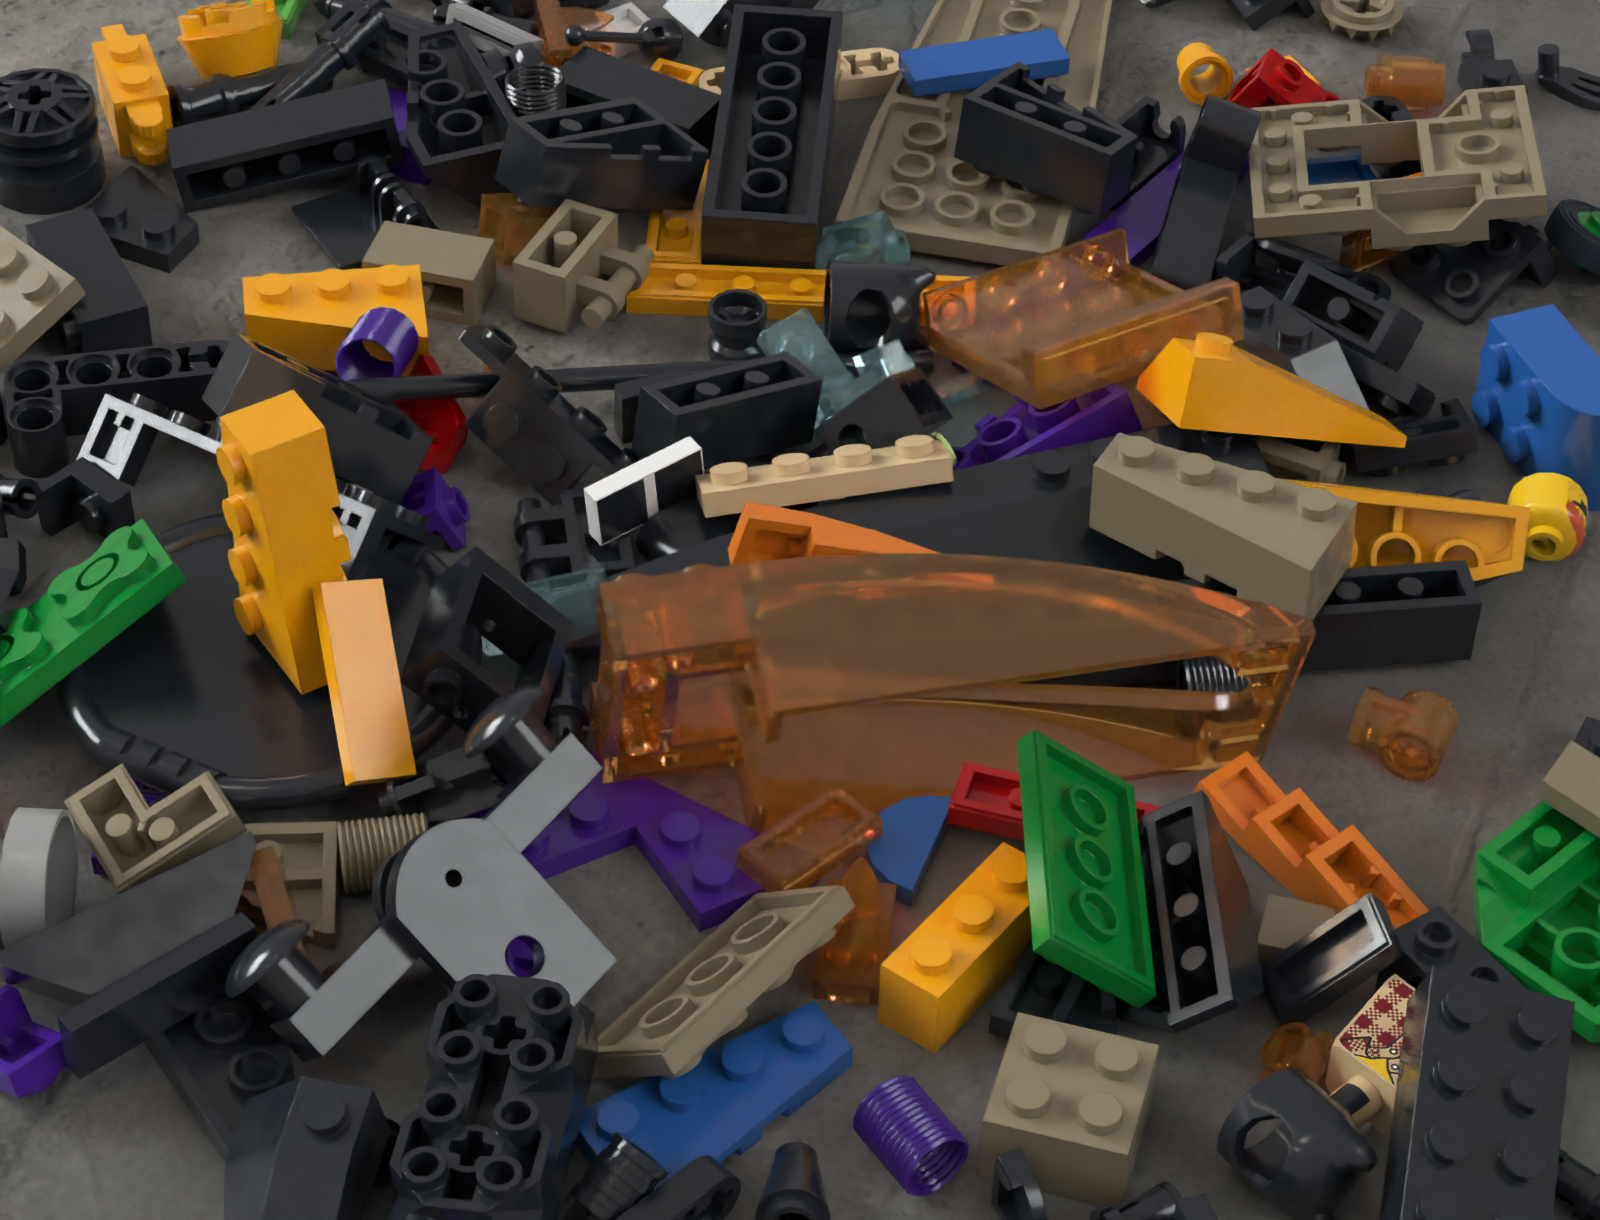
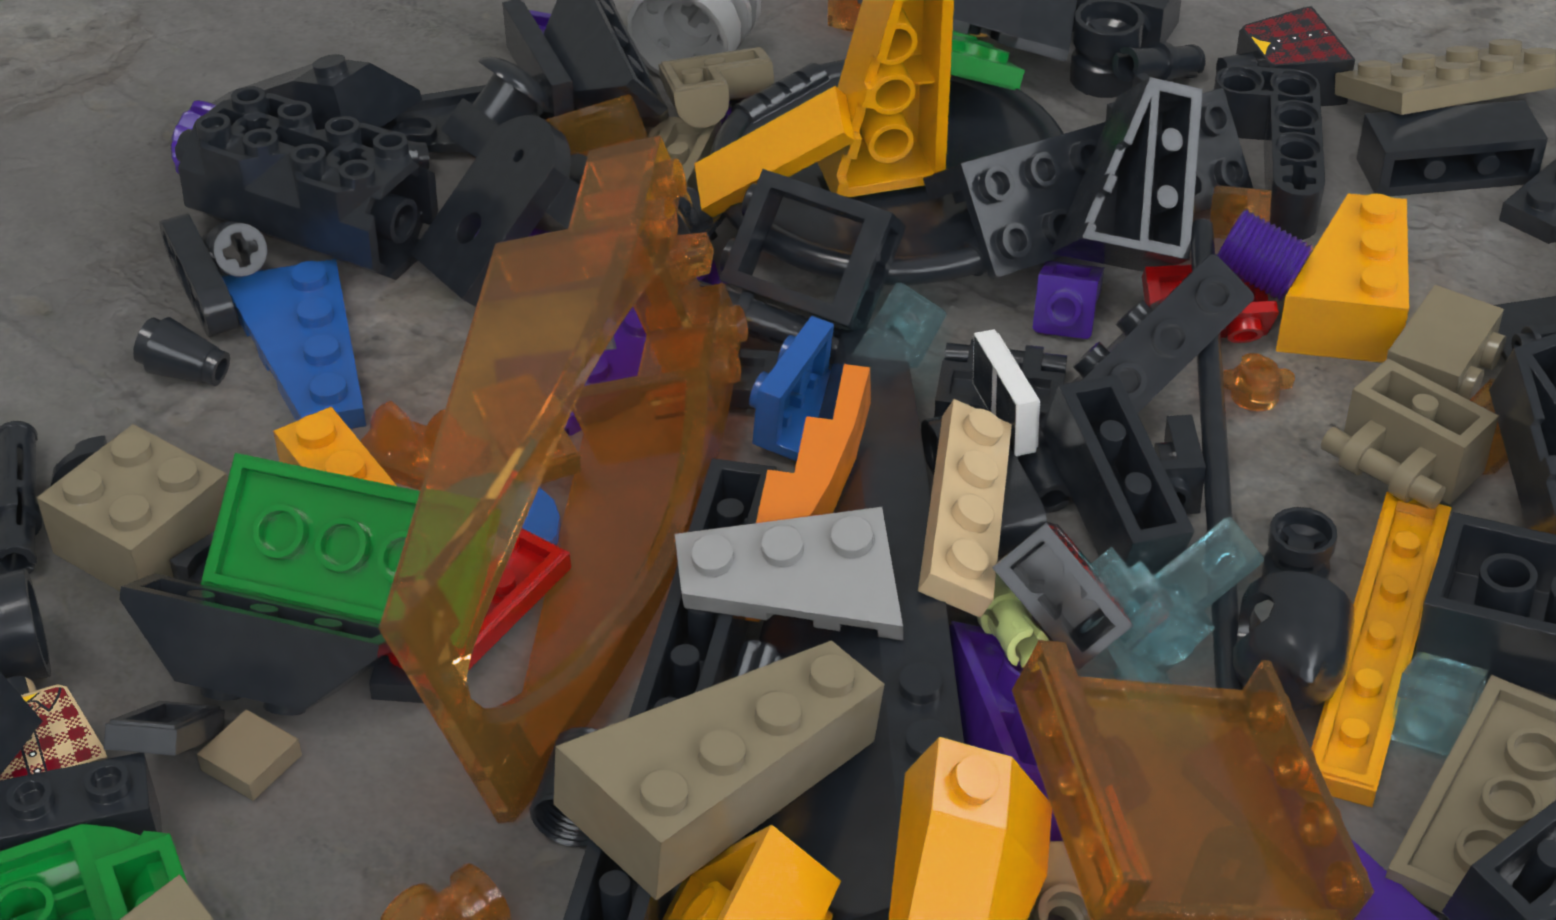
camera: 110 degrees right, 0 degrees up
(718, 981) = (385, 328): dark tan piece -> none
(910, 1135) = (186, 416): dark purple piece -> none
(971, 513) = (802, 567): none -> light grey wing
(1297, 1047) = (100, 689): clear orange plate -> none
(1302, 845) = (305, 802): orange slope -> none

